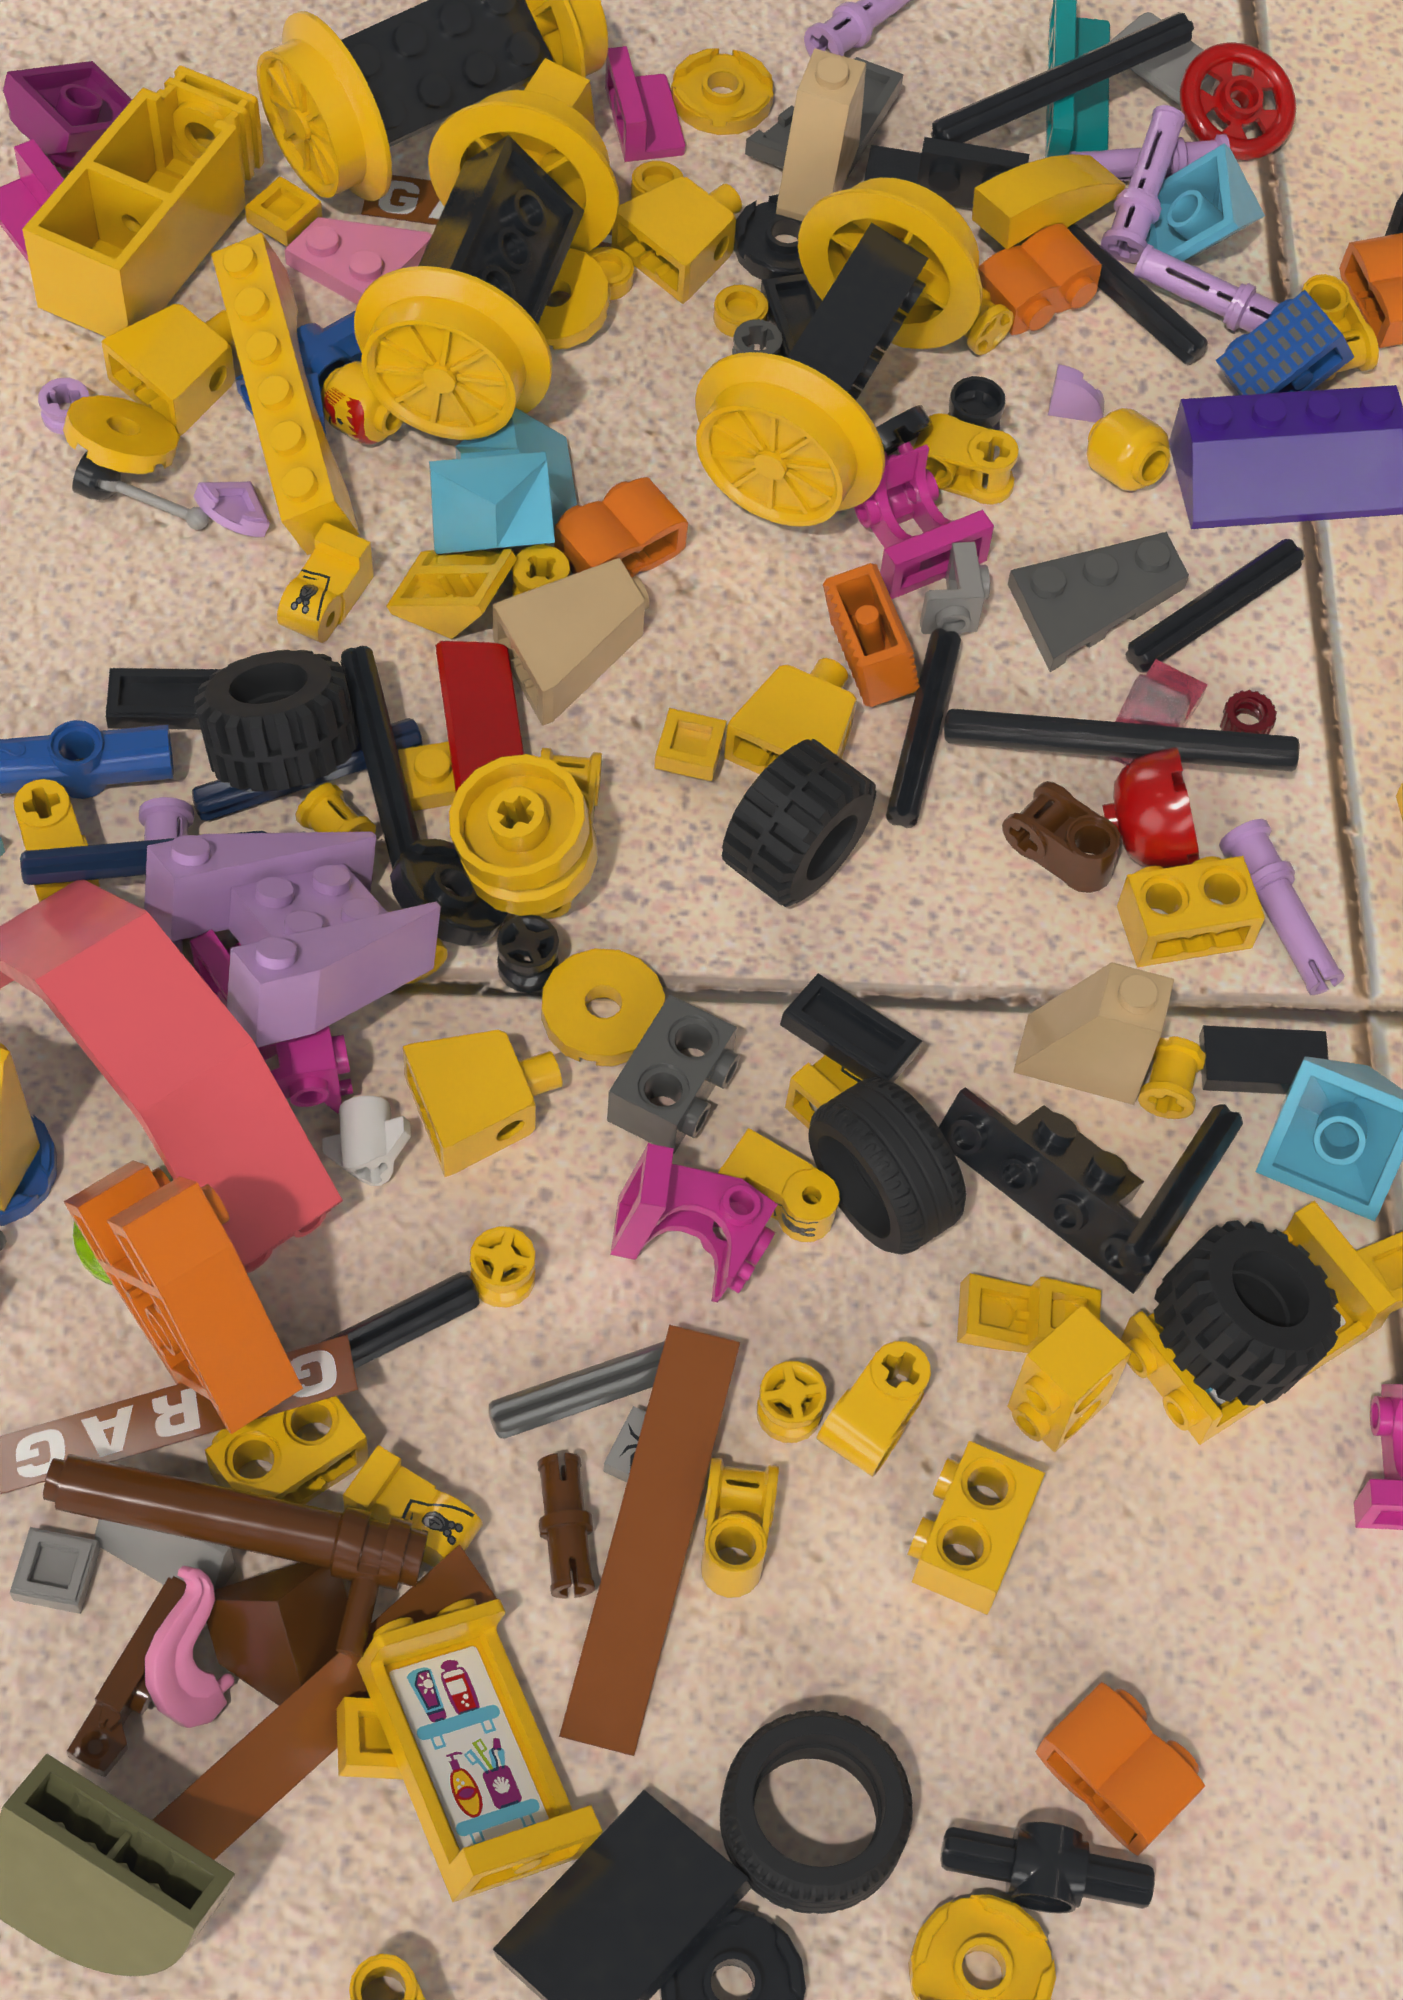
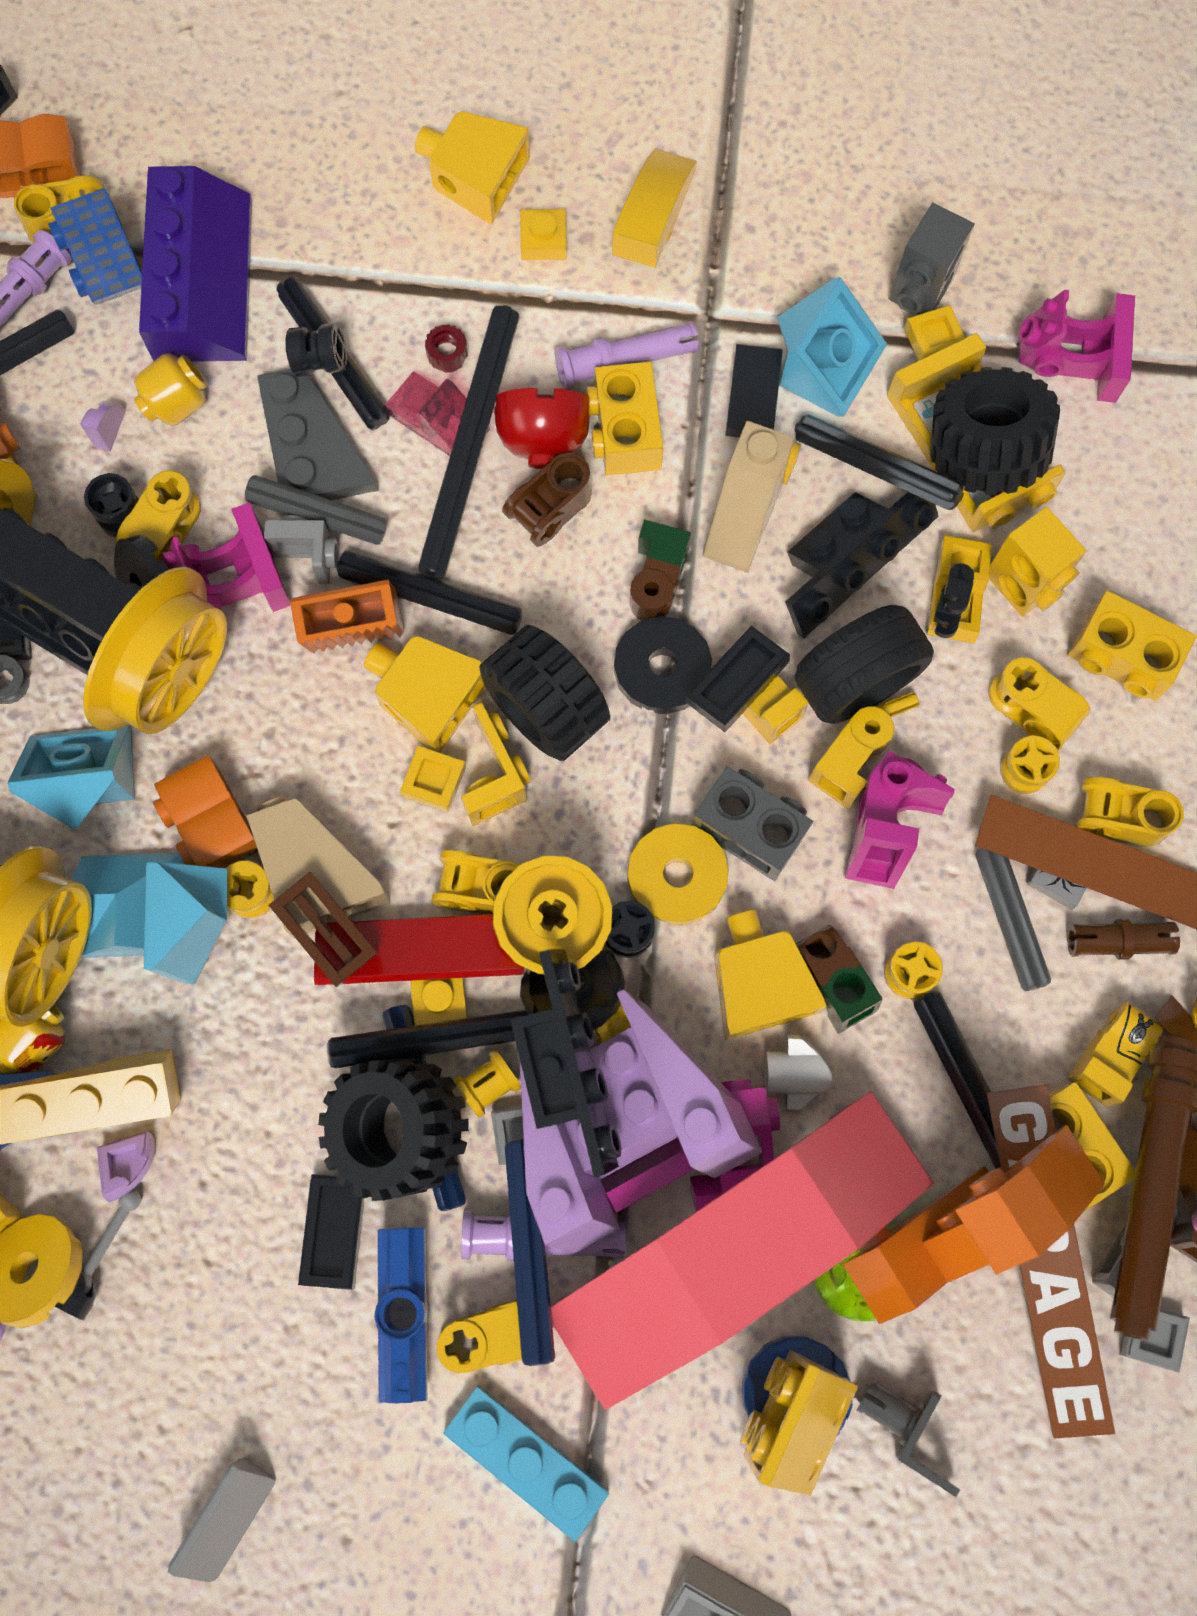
camera: 80 degrees left, 15 degrees up
(327, 584) = (230, 1081): yellow leg -> none
(346, 840) = (560, 1064): none -> black bracket
(450, 589) = (246, 967): yellow slope -> none
(482, 1178) = (840, 978): none -> leg
(501, 642) = (295, 894): none -> reddish brown tile
(652, 408) = (74, 772): none -> medium azure slope
(681, 811) = (491, 795): none -> yellow bracket
(854, 1246) = (900, 704): none -> yellow piece
(881, 947) = (655, 638): none -> black tile
(988, 959) = (656, 585): none -> leg
(1003, 601) = (313, 507): none -> dark grey axle
(1004, 1287) = (953, 600): none -> black piece
(1201, 571) = (316, 350): none -> black wheel

